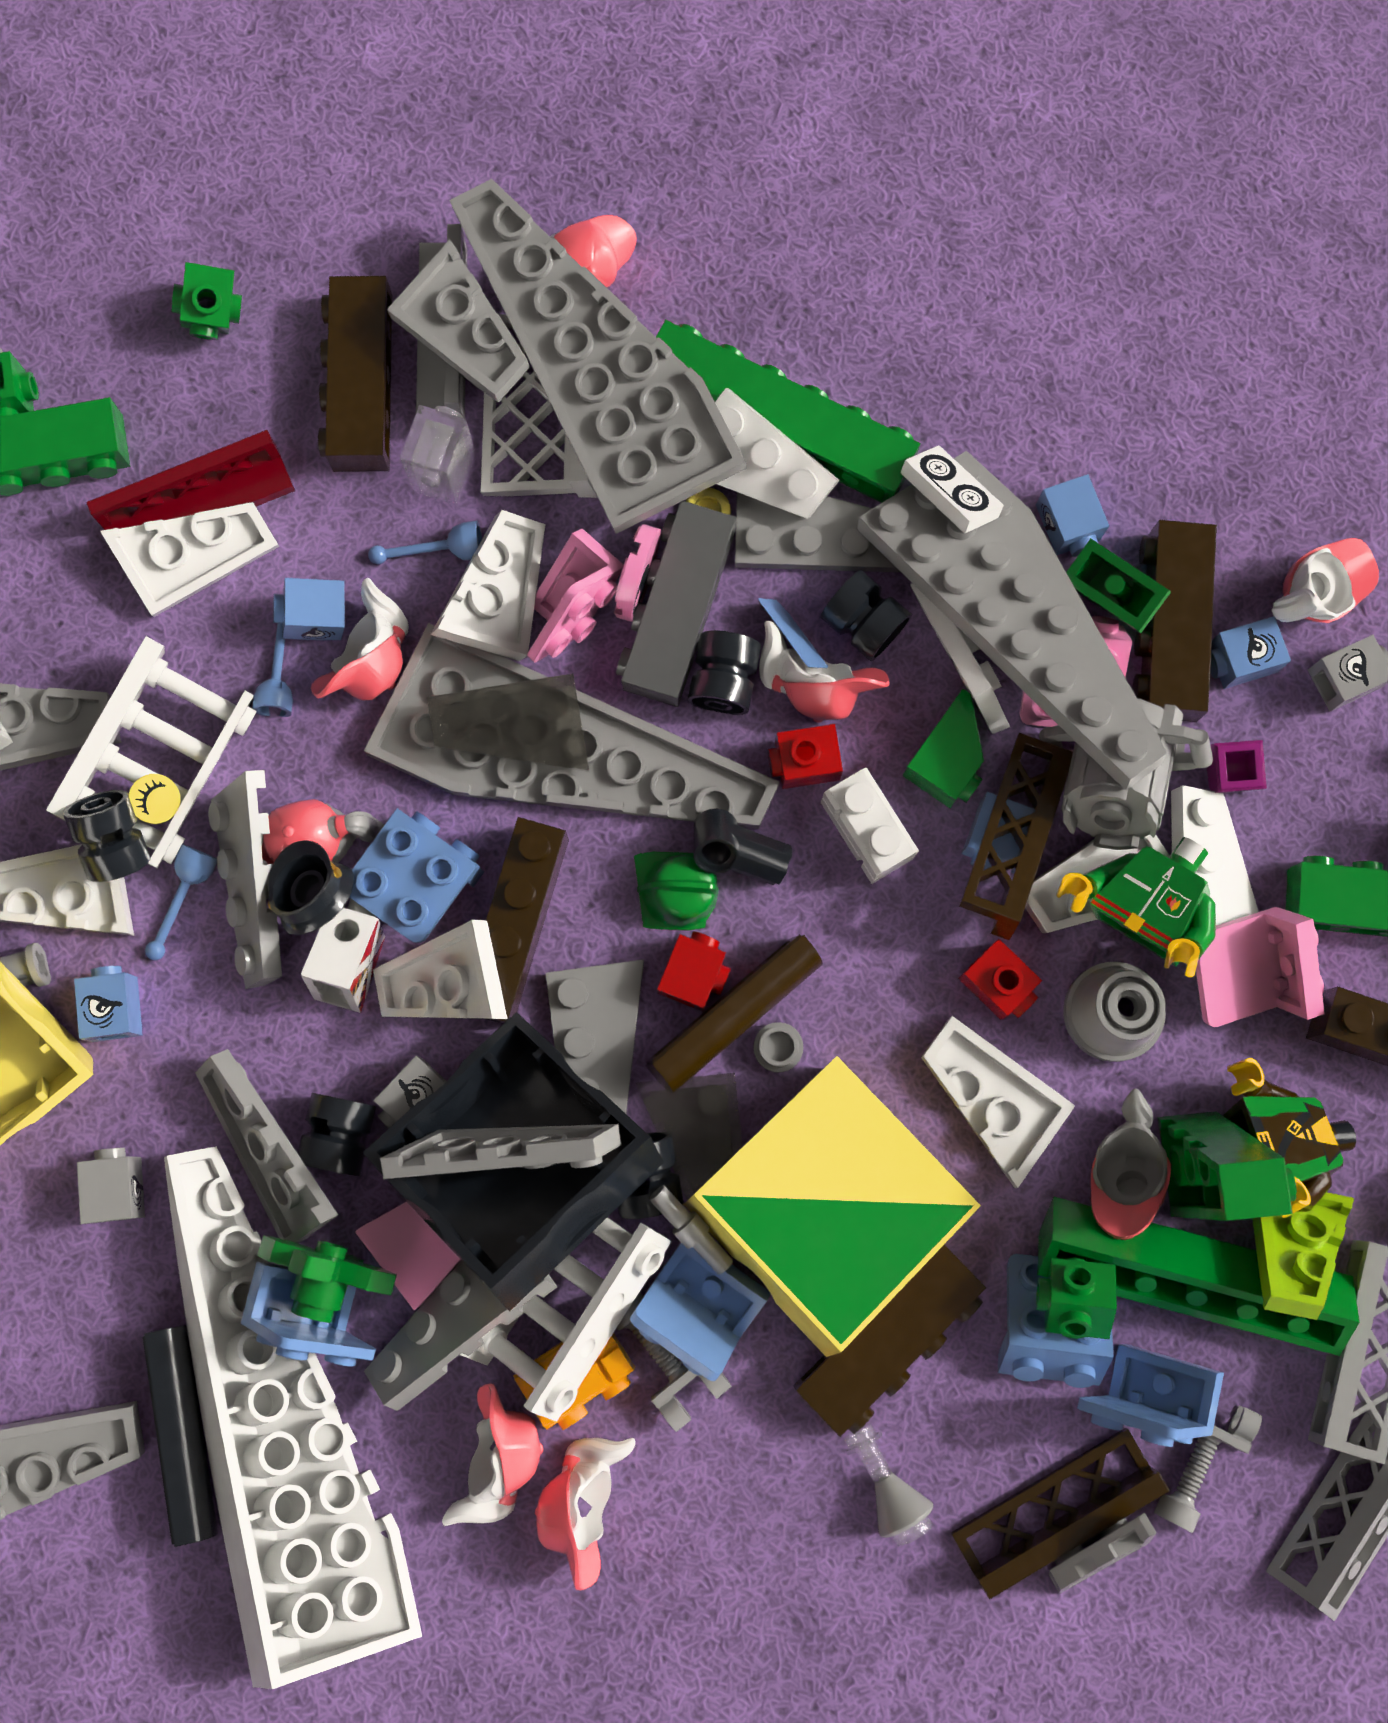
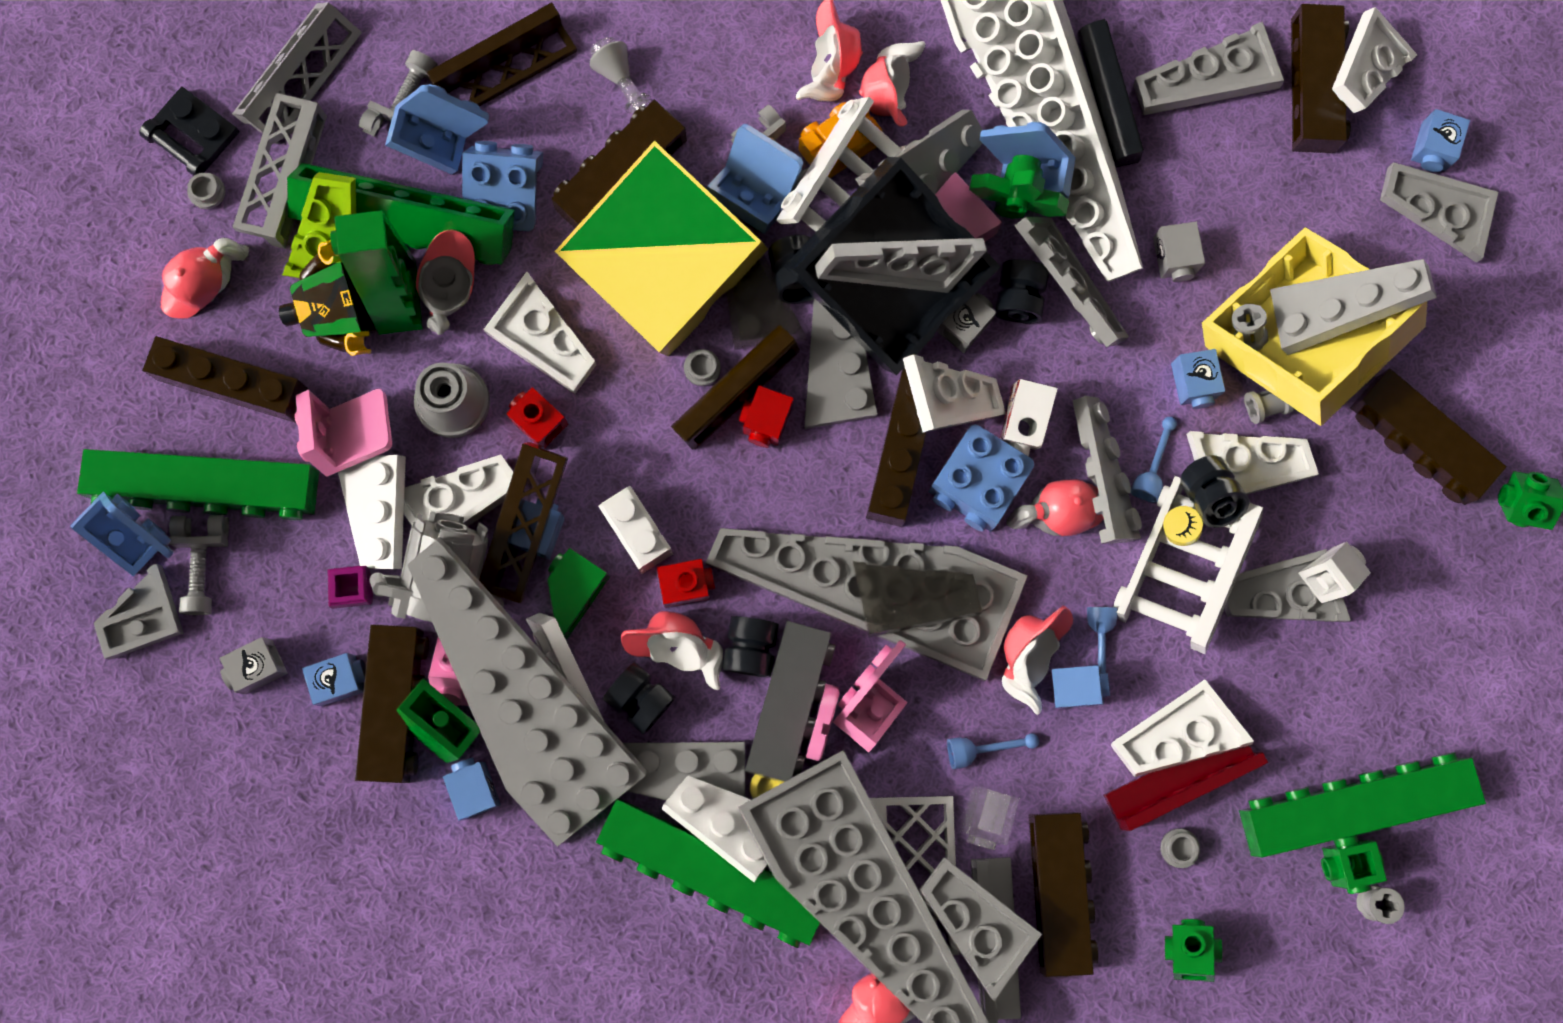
camera: 175 degrees right, 0 degrees up
(14, 1073) = (1258, 319): none -> light grey bush
(208, 423) = (1180, 848): none -> light grey plate
(307, 887) = (1058, 457): black piece -> none
(498, 590) = (932, 708): white wing -> none
(674, 891) = (782, 483): green piece -> none
(691, 1229) = (762, 227): light grey bar -> none
(725, 846) = (745, 508): black piece -> none
(793, 633) = (697, 683): medium blue sticker -> none
(951, 489) = (570, 799): white tile -> none
(1078, 1298) = (486, 185): green brick -> none
(1113, 1546) = (474, 33): light grey wing -> none
(1152, 901) = (419, 468): green torso -> none
(1327, 582) = (268, 735): white hair -> none

